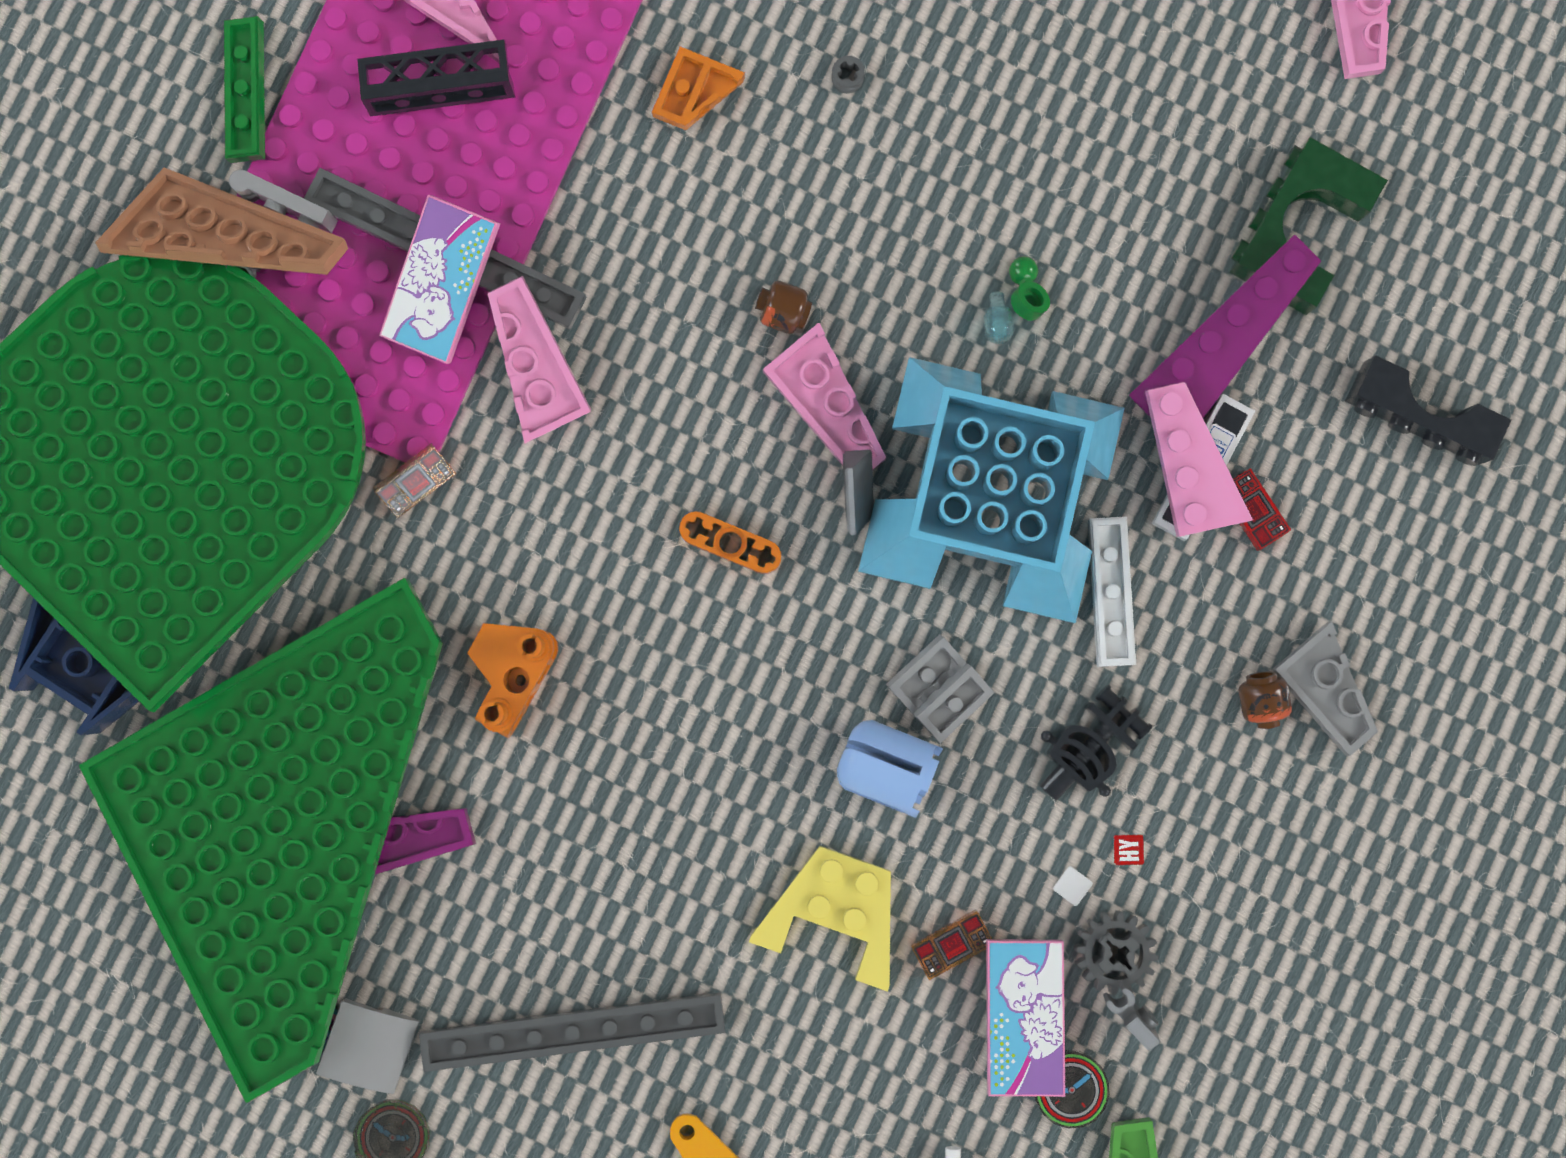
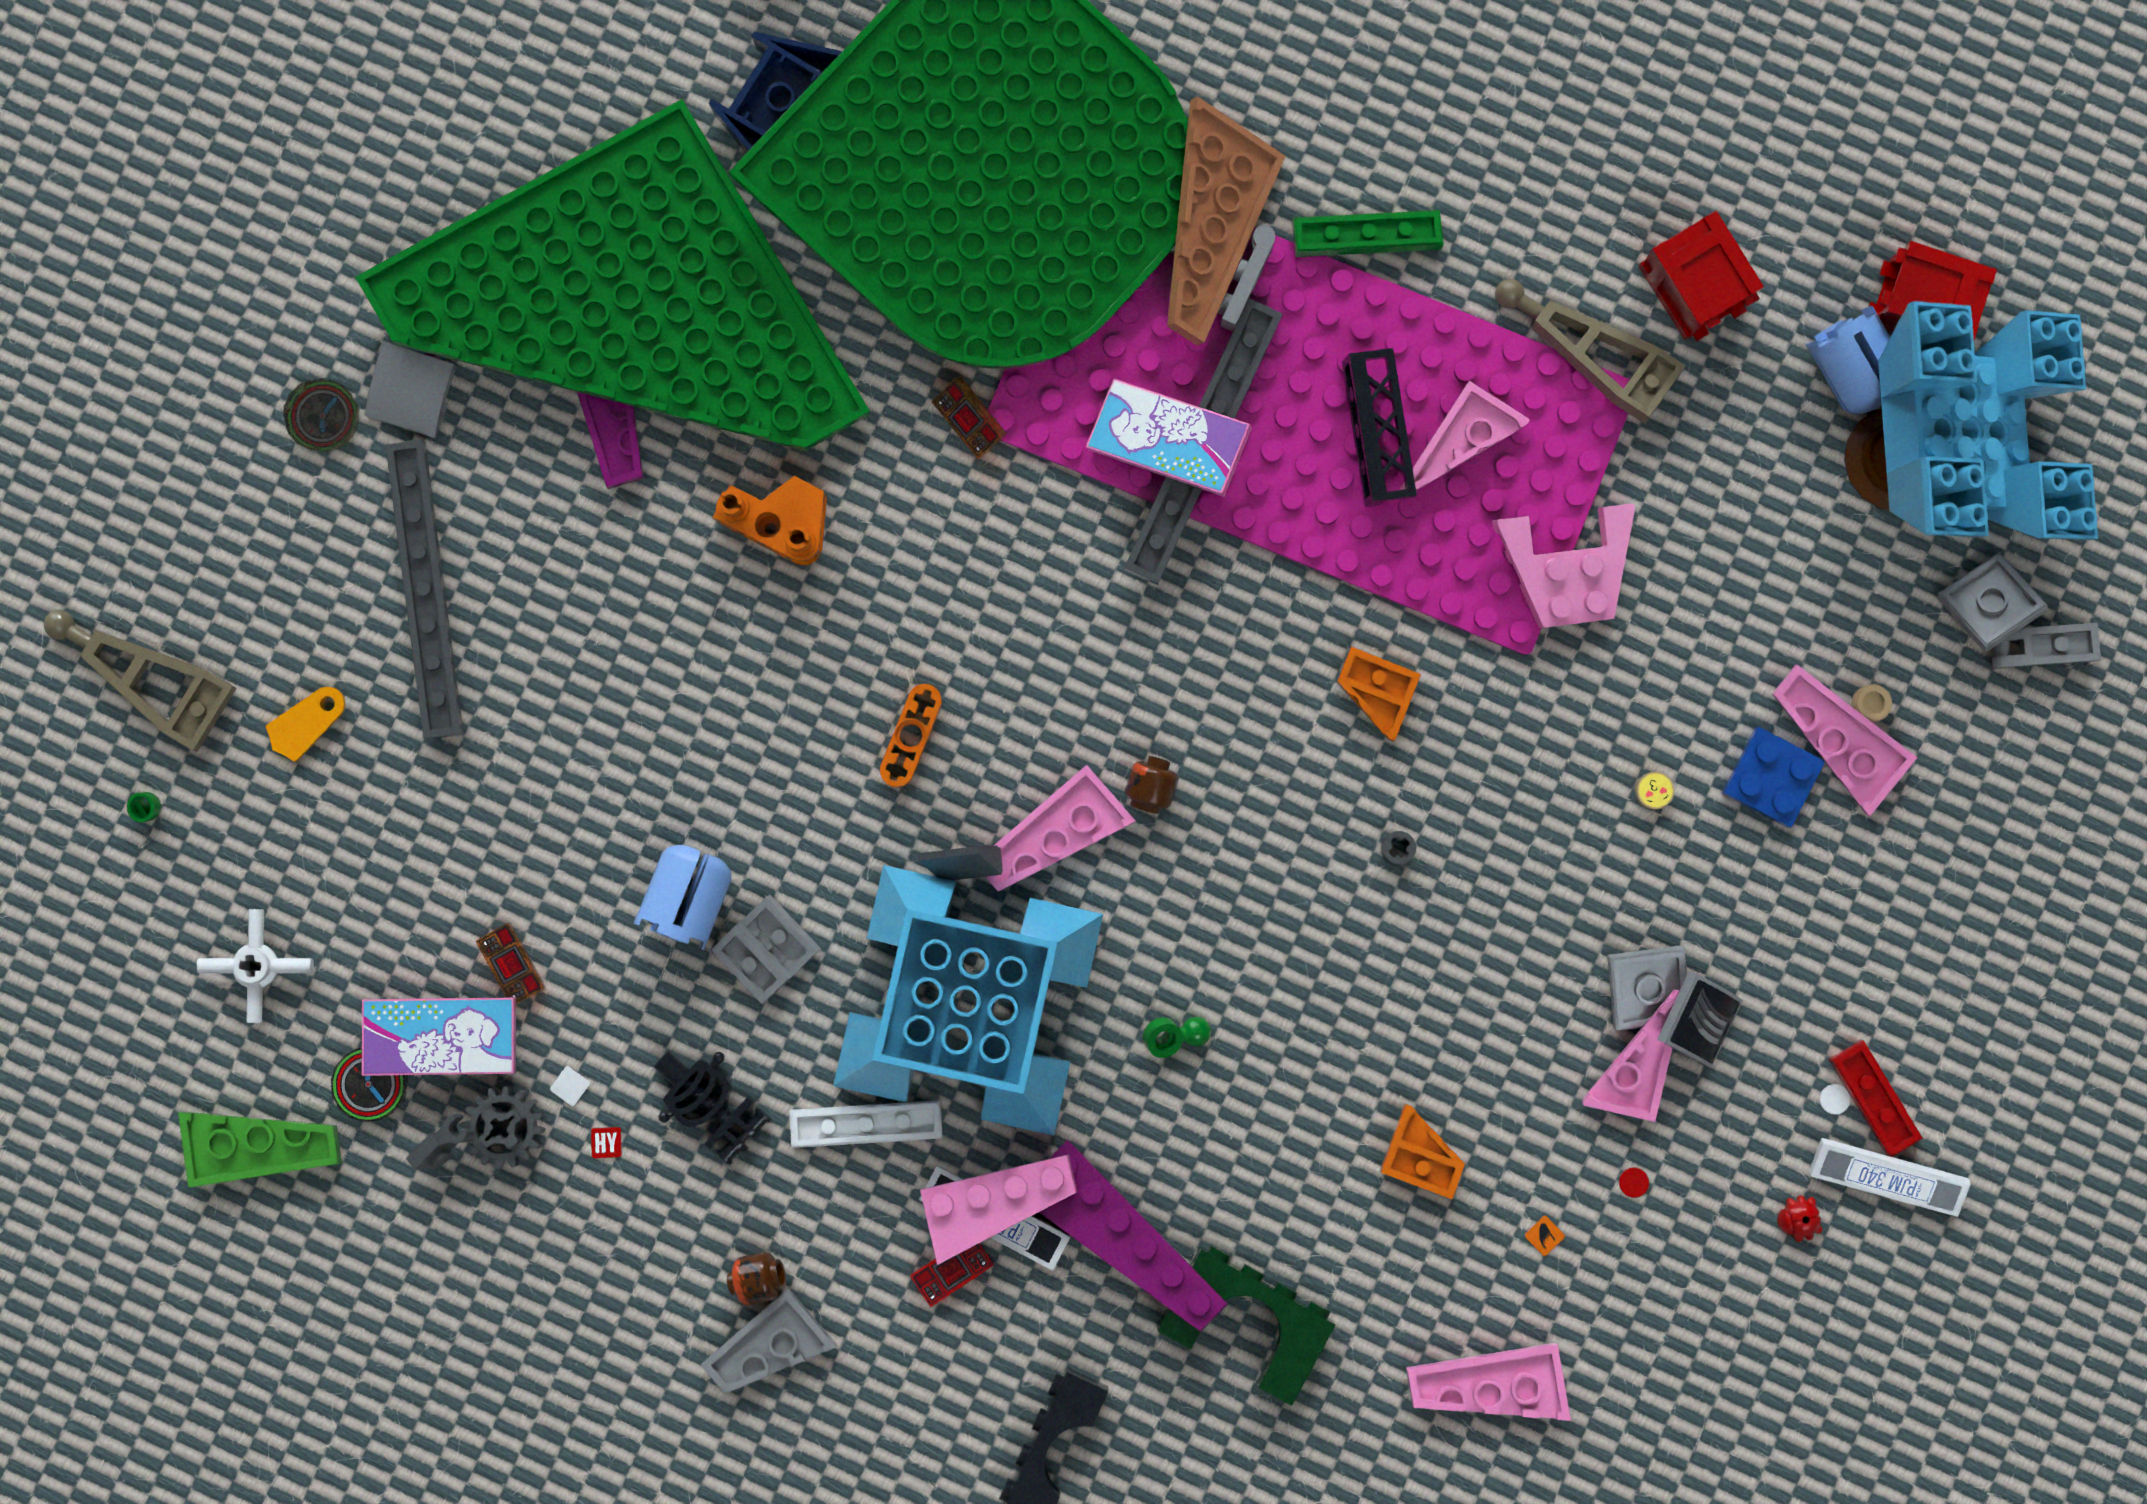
camera: 90 degrees right, 0 degrees up
(538, 372) = (1076, 539): bright pink wing -> none
(840, 896) = (557, 853): light yellow wing -> none
(998, 320) = (1142, 1005): clear light blue cylinder -> none
(1145, 58) = (1421, 1156): none -> orange wing

